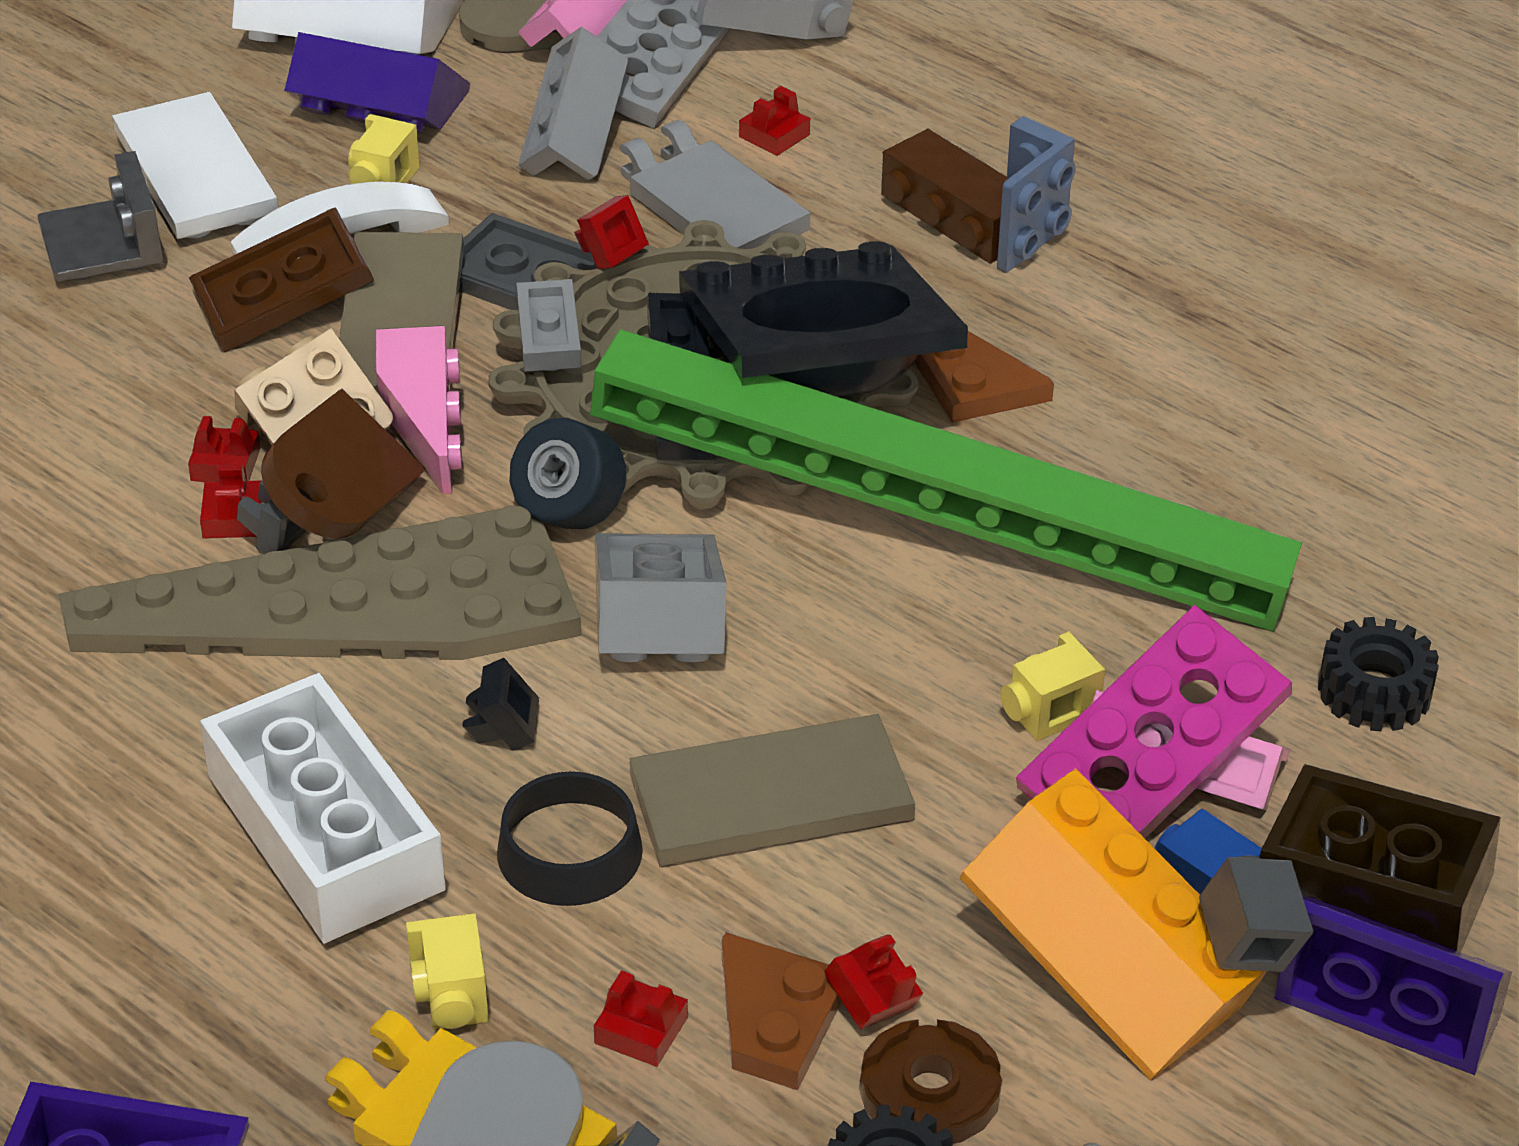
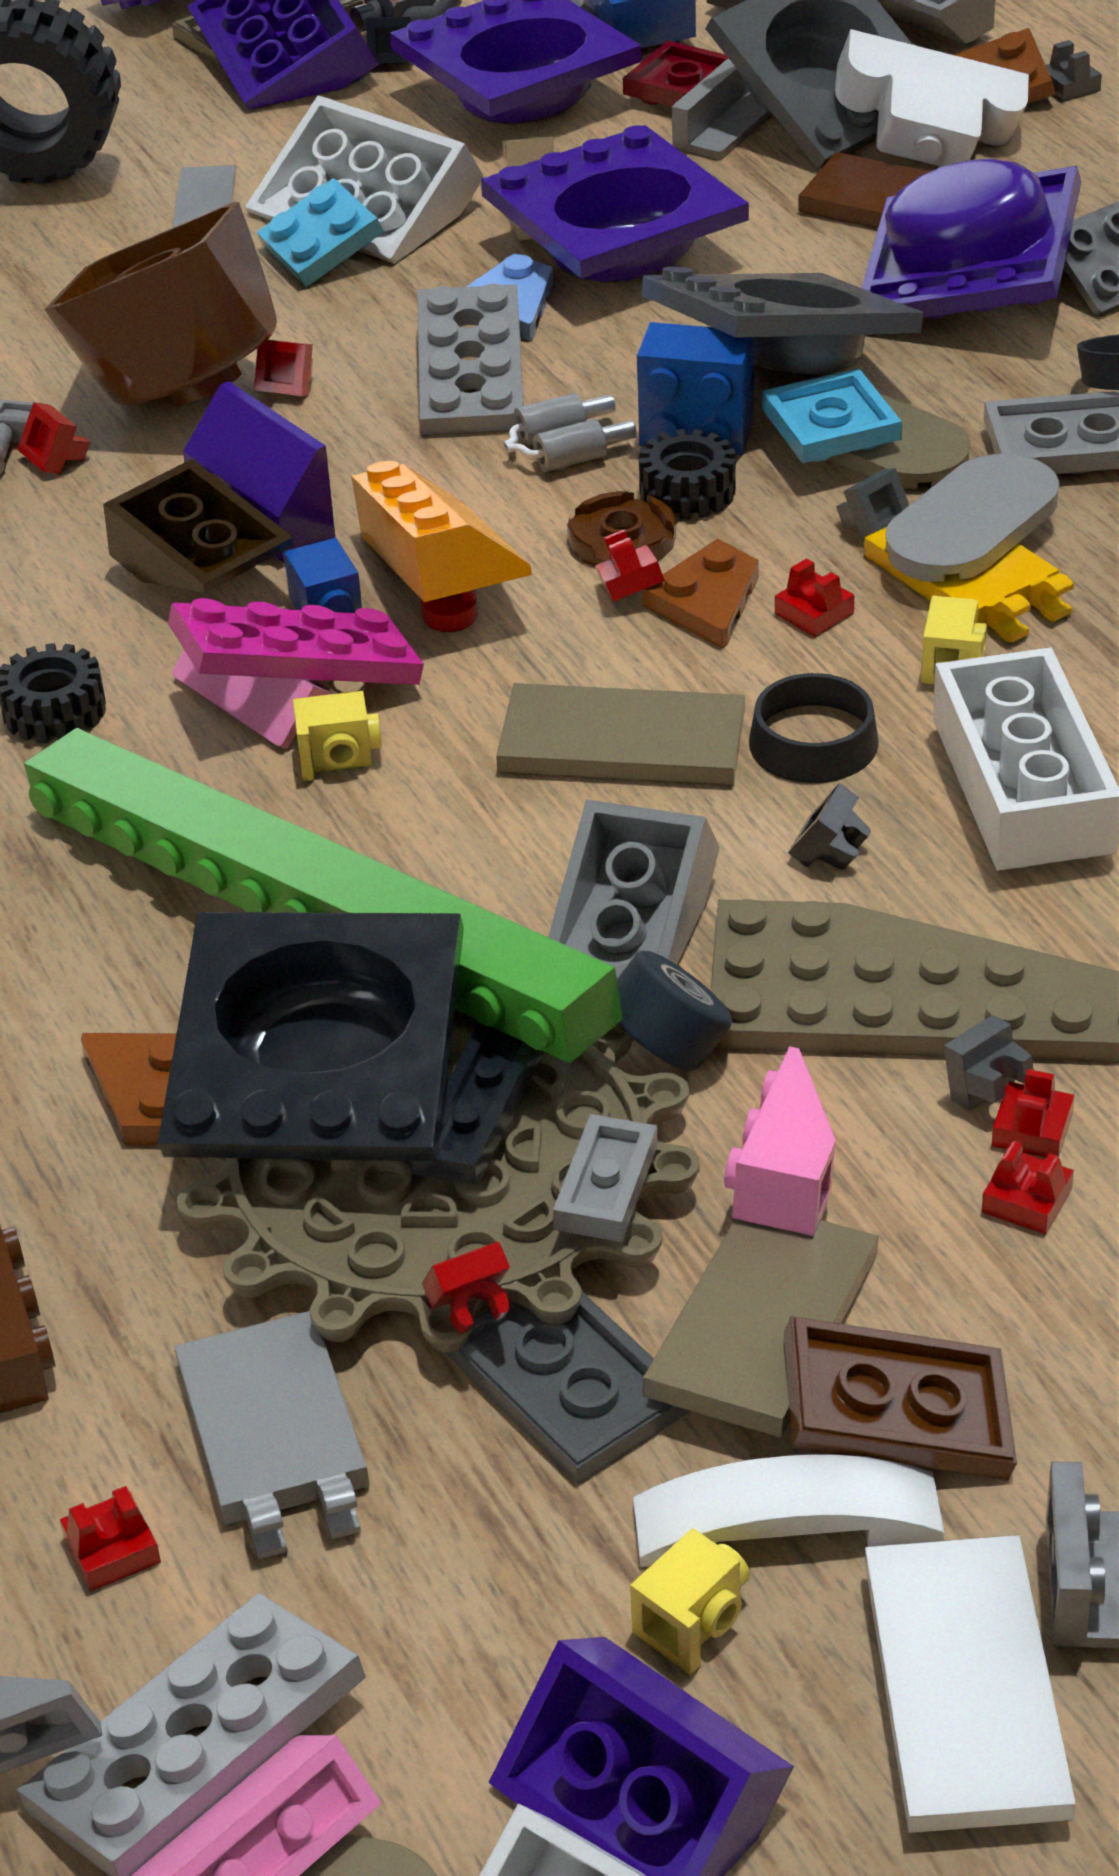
camera: 155 degrees left, 0 degrees up
(301, 382) = (925, 1195): tan bracket -> none
(342, 464) = (914, 1057): reddish brown tile -> none
(574, 105) = (393, 1585): light grey panel -> none
(1255, 914) = (355, 448): dark grey brick -> none

